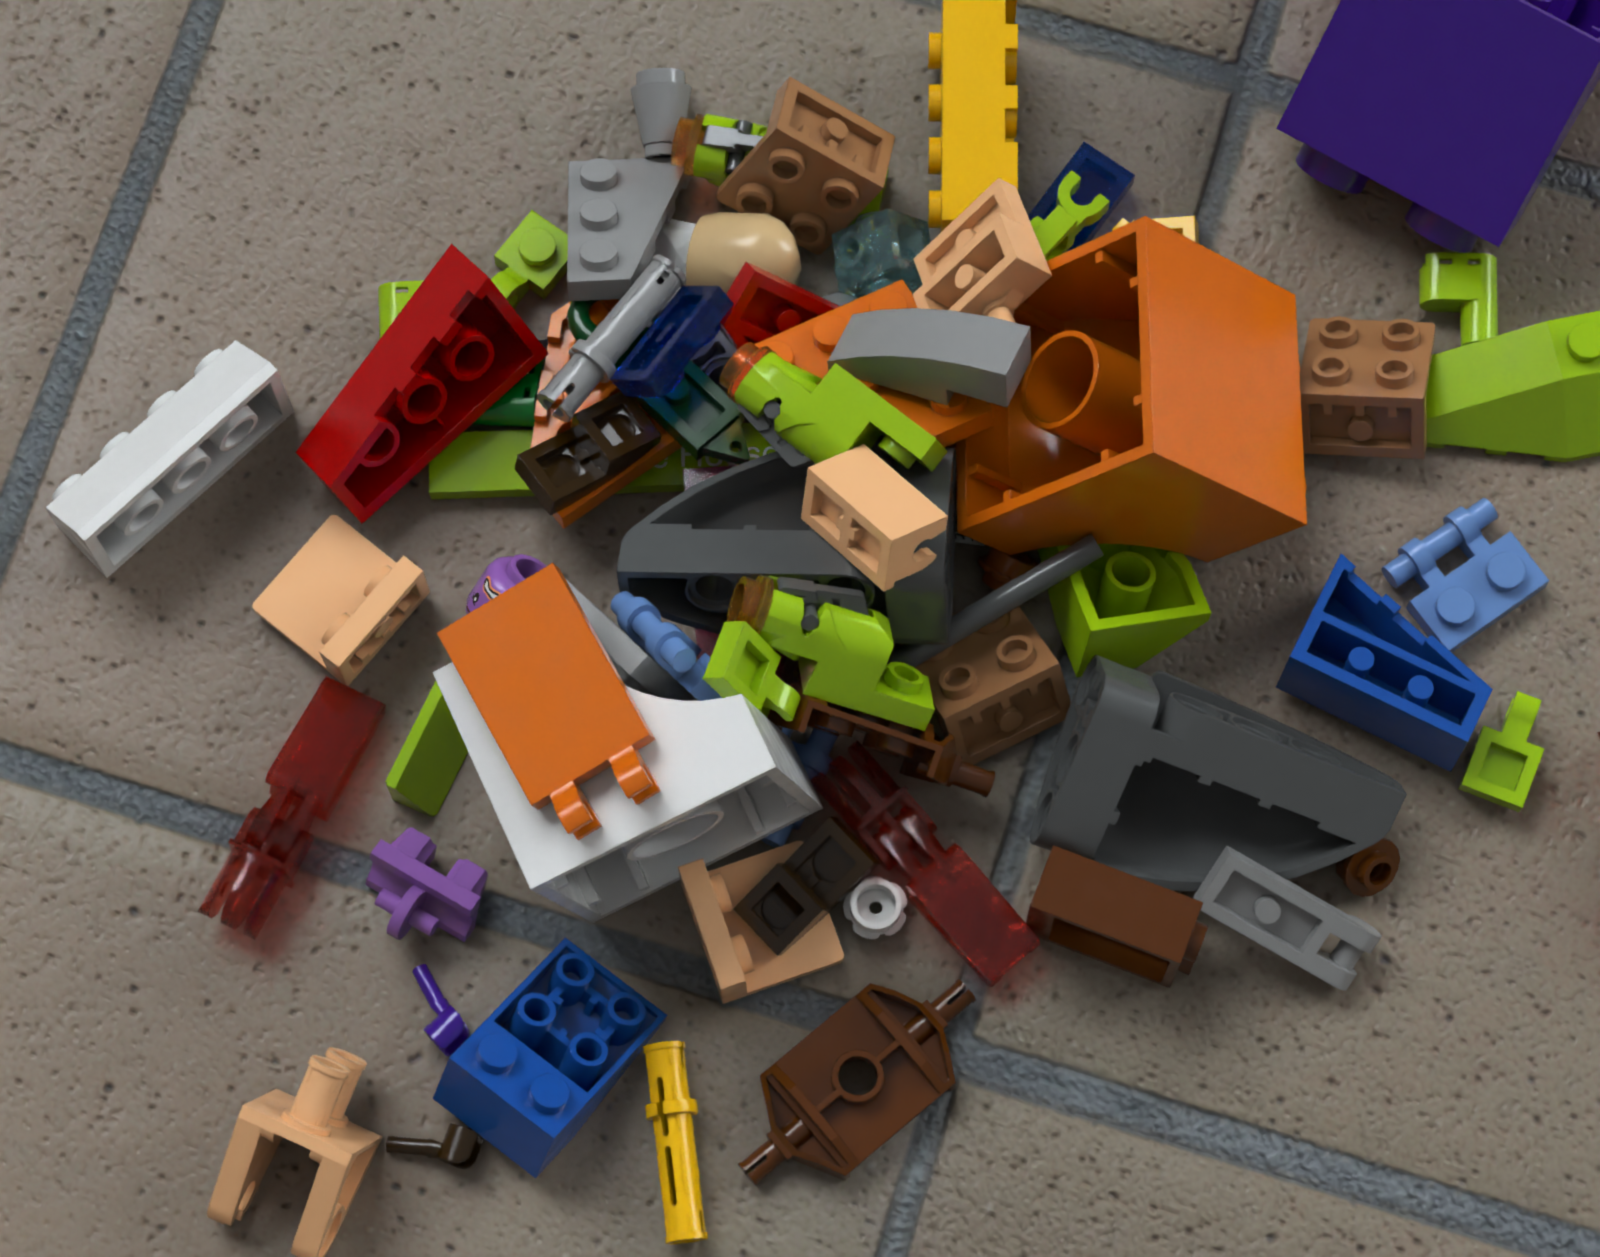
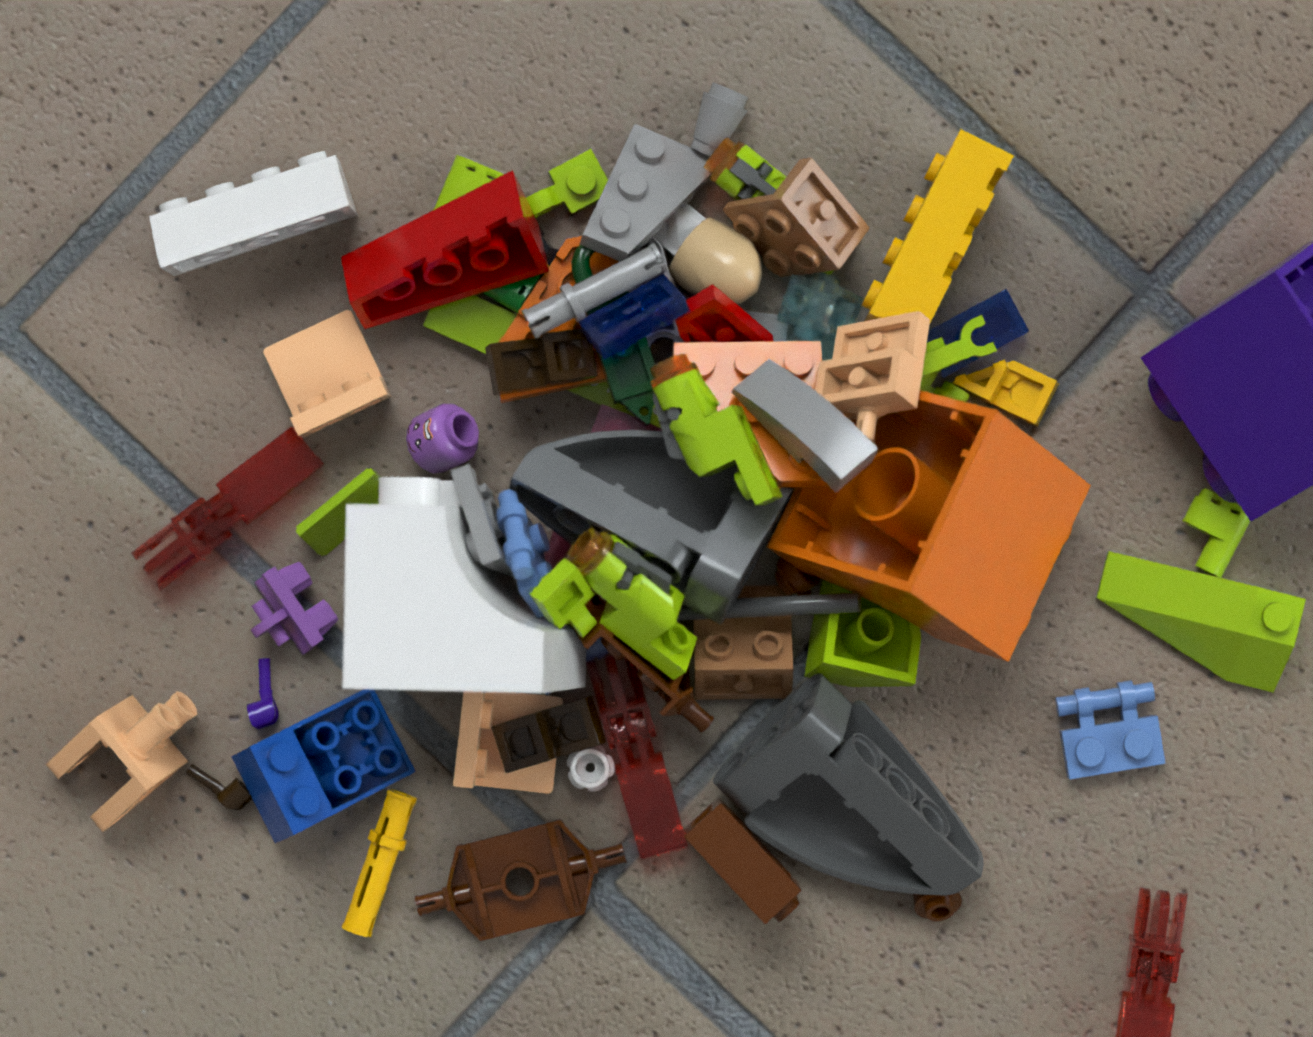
camera: 25 degrees right, 15 degrees up
(551, 697) = (415, 568): orange tile -> none
(871, 515) = (703, 527): light nougat hinge -> none
(1285, 918) = (858, 914): light grey plate -> none
(1366, 387) = (1112, 564): medium nougat bracket -> none
(1383, 673) = (1012, 775): blue wedge -> none
(1502, 760) = (1065, 875): lime plate -> none

